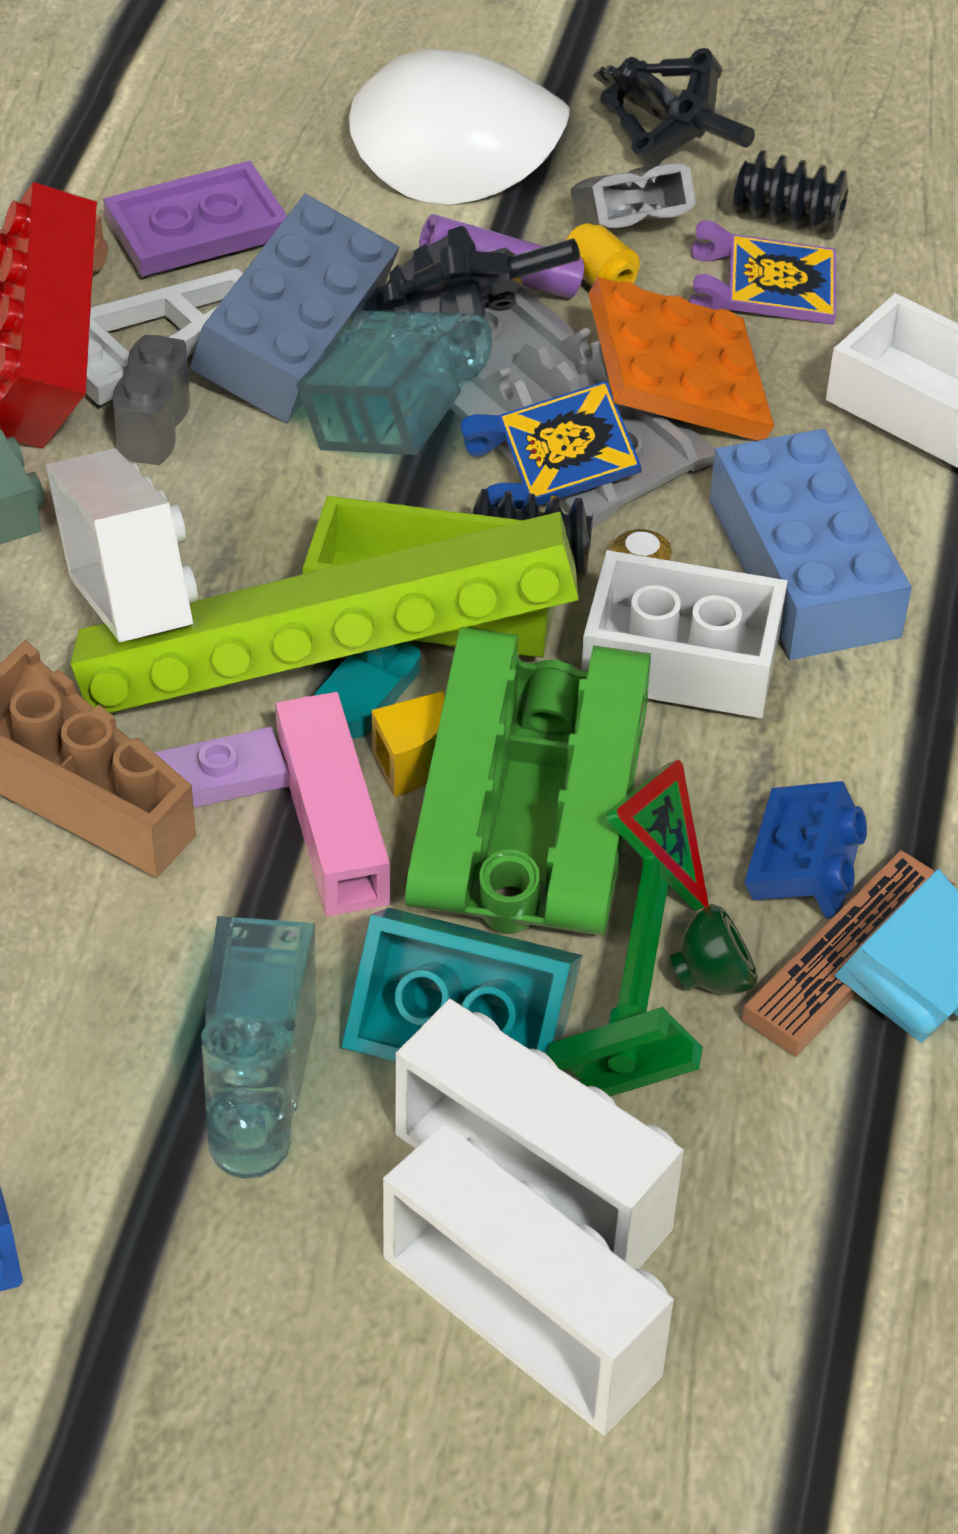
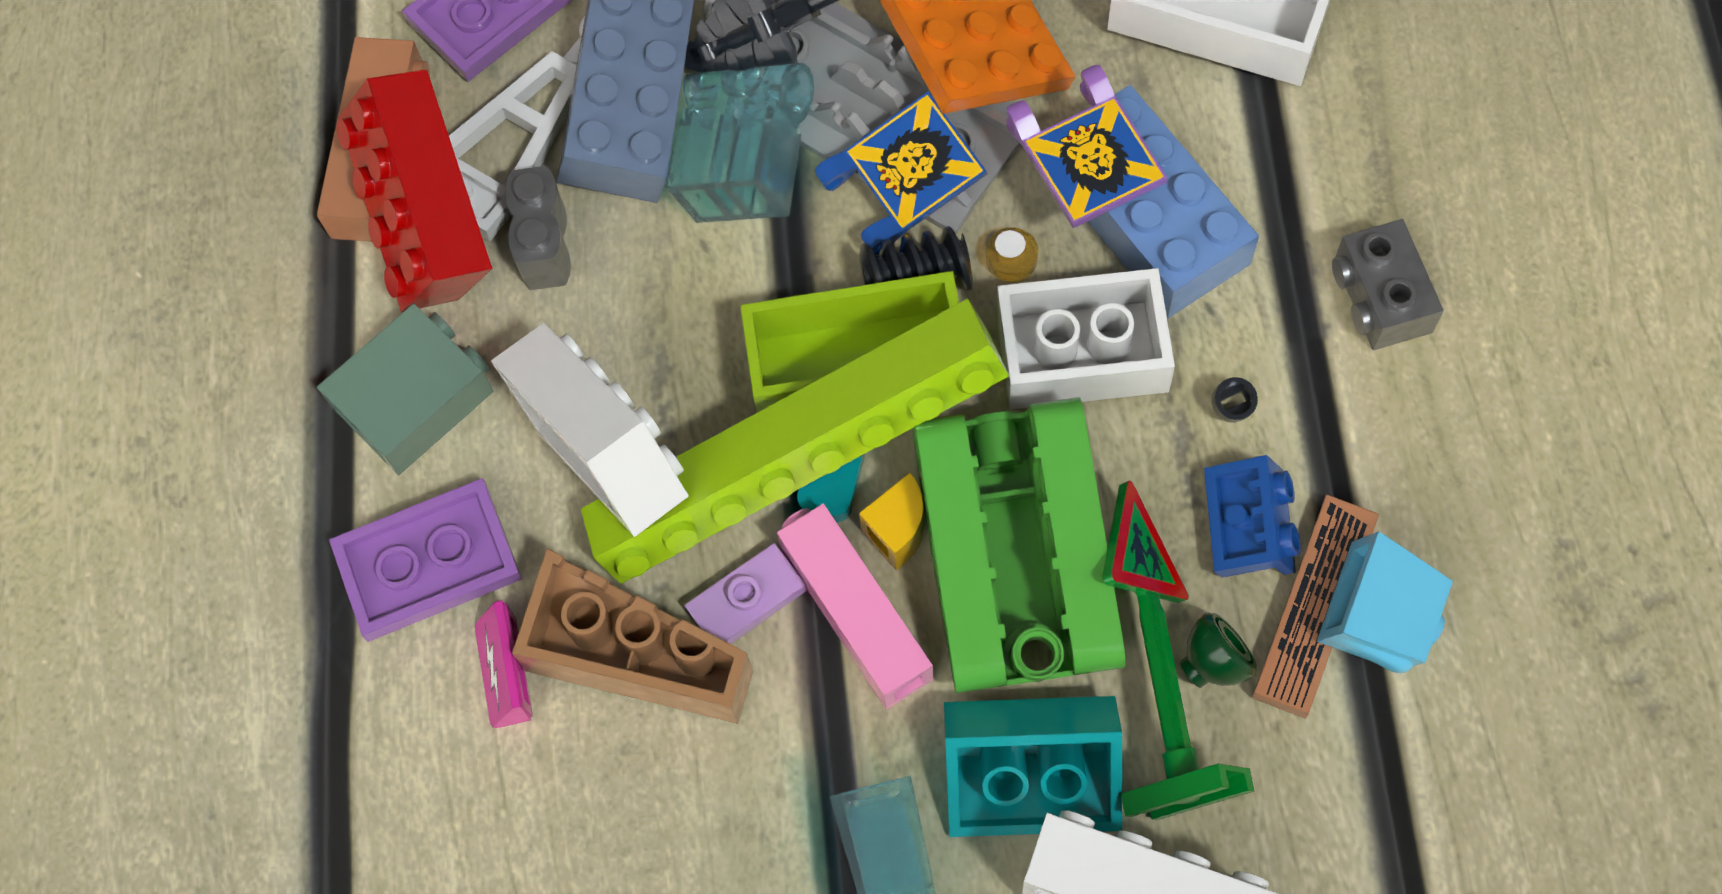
camera: 10 degrees left, 20 degrees up
(753, 468) = (1091, 157): none -> flag
(826, 730) = (1228, 389): none -> black hinge

